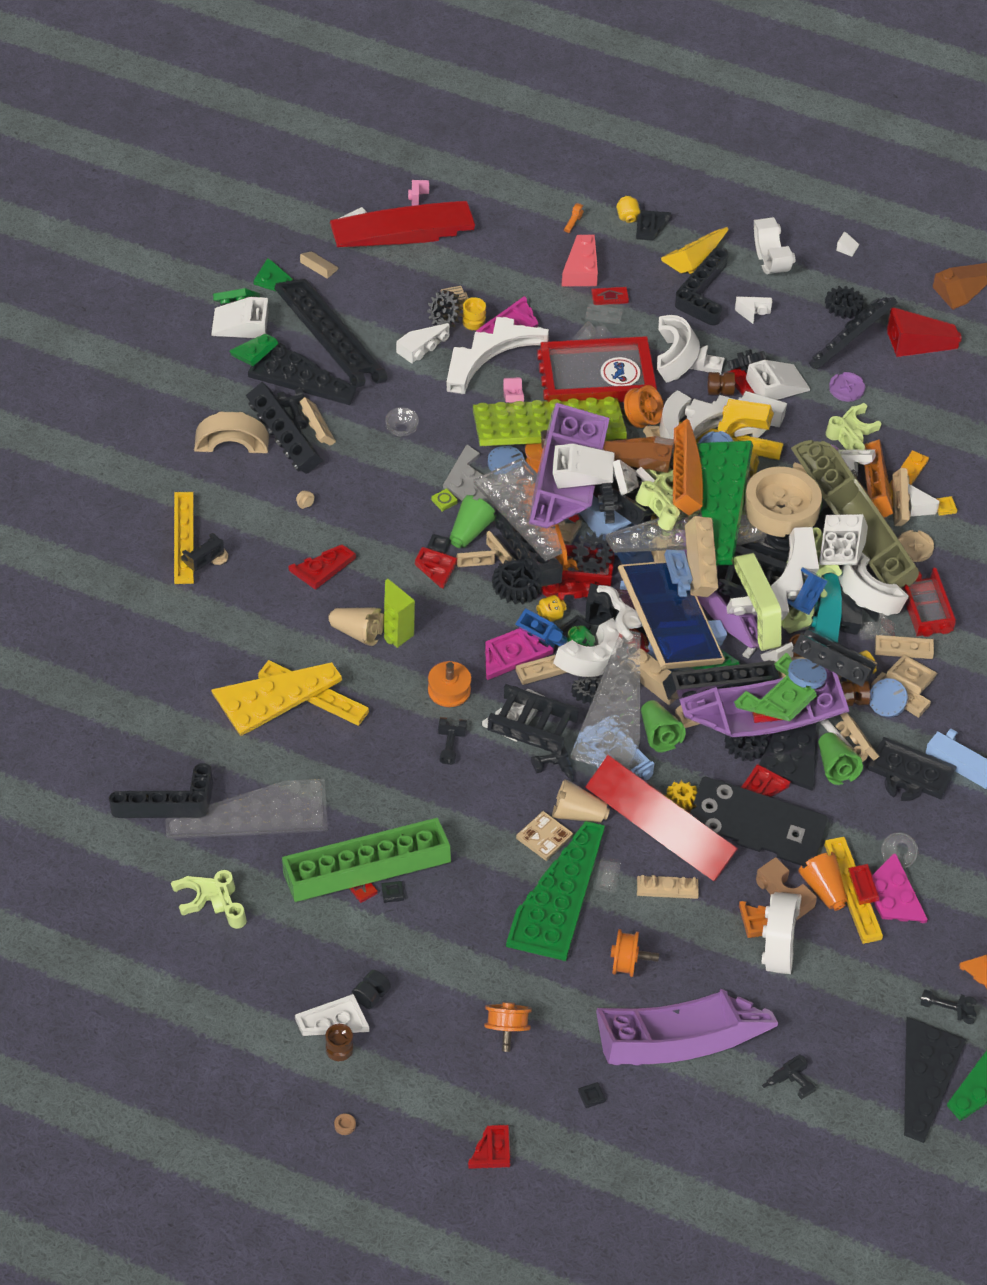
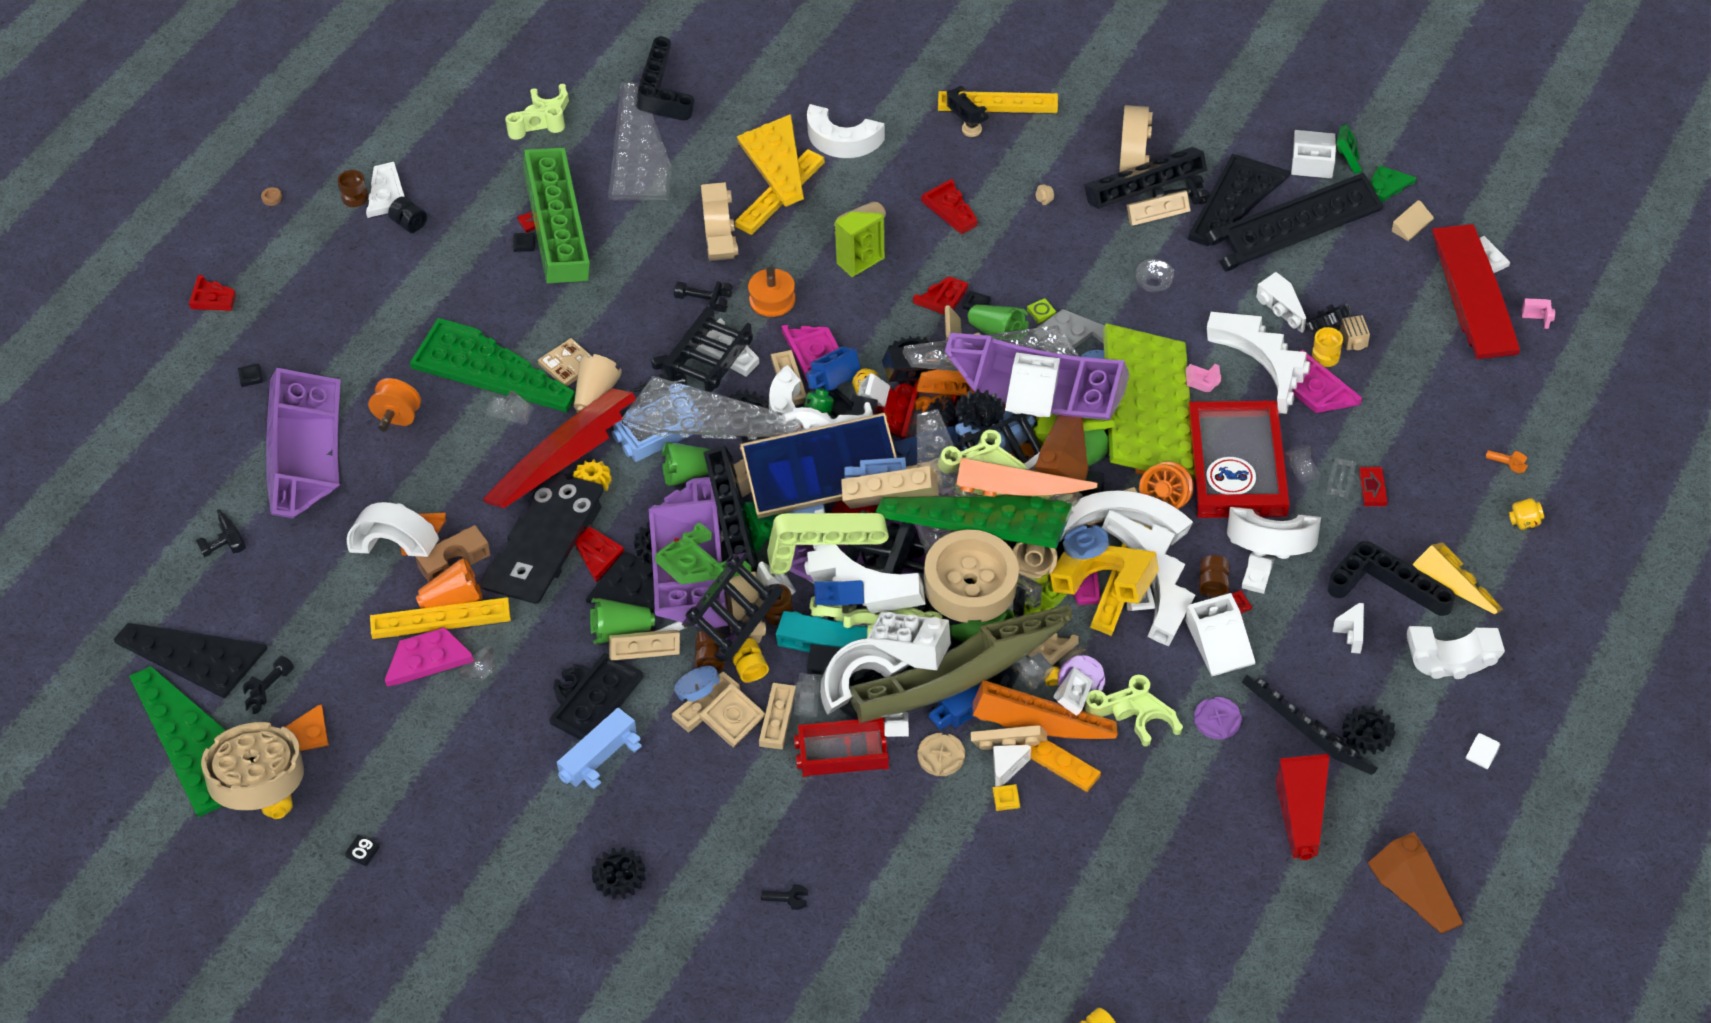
camera: 100 degrees right, 0 degrees up
(243, 657) = (843, 141): none -> white brick
(255, 349) = (1264, 157): green wing -> none
(373, 732) = (717, 222): none -> tan brick
(507, 1018) = (340, 304): orange wheel -> none
(574, 594) = (874, 388): none -> white slope
(581, 263) = (1424, 457): coral wedge -> none
(625, 477) = (1020, 432): white wing -> none
(651, 223) = (1503, 537): black wing -> none
(667, 887) = (482, 457): tan plate -> none
(749, 358) = (1250, 601): black gear -> none
(807, 673) = (703, 569): medium blue tile -> none
(863, 884) = (437, 620): red tile -> none

